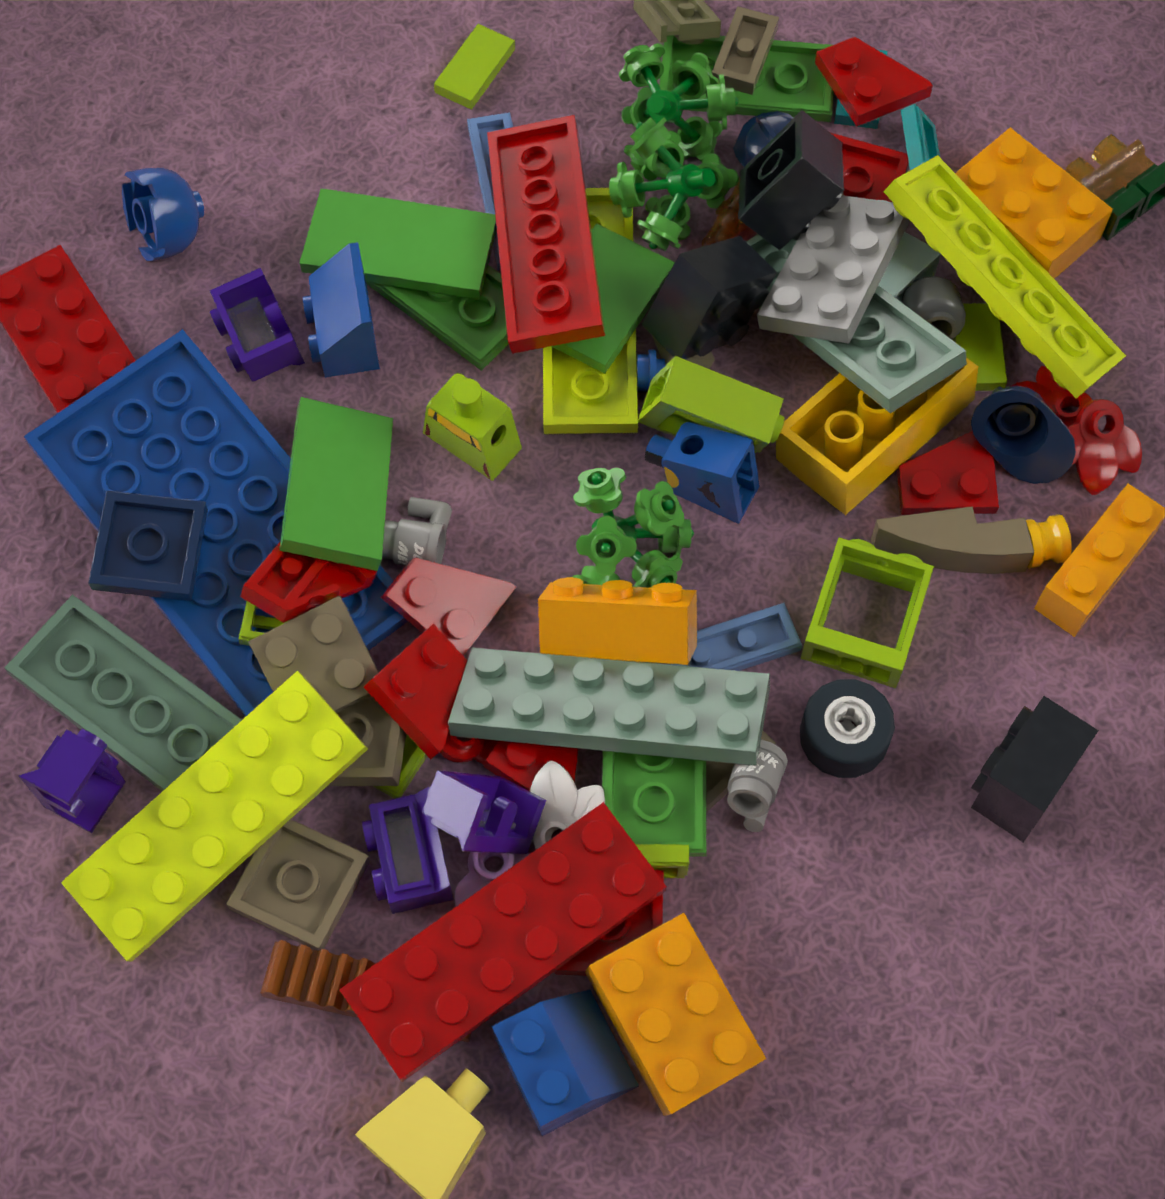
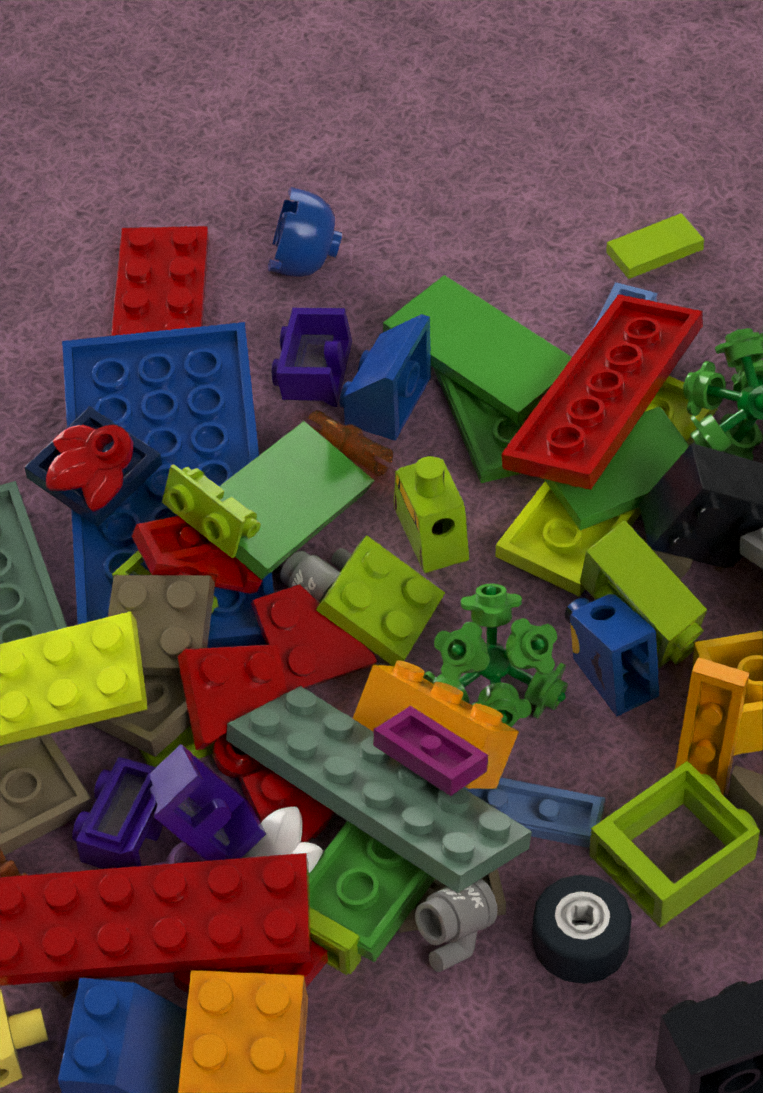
camera: 35 degrees right, 15 degrees down
(148, 553) = (86, 466): none -> red plate
(277, 532) = (199, 504): none -> lime hinge
(348, 393) = (352, 443): none -> clear orange pin
(486, 531) = (381, 601): none -> lime plate
(645, 651) = (430, 750): none -> magenta plate
(847, 495) = (712, 719): none -> light orange plate

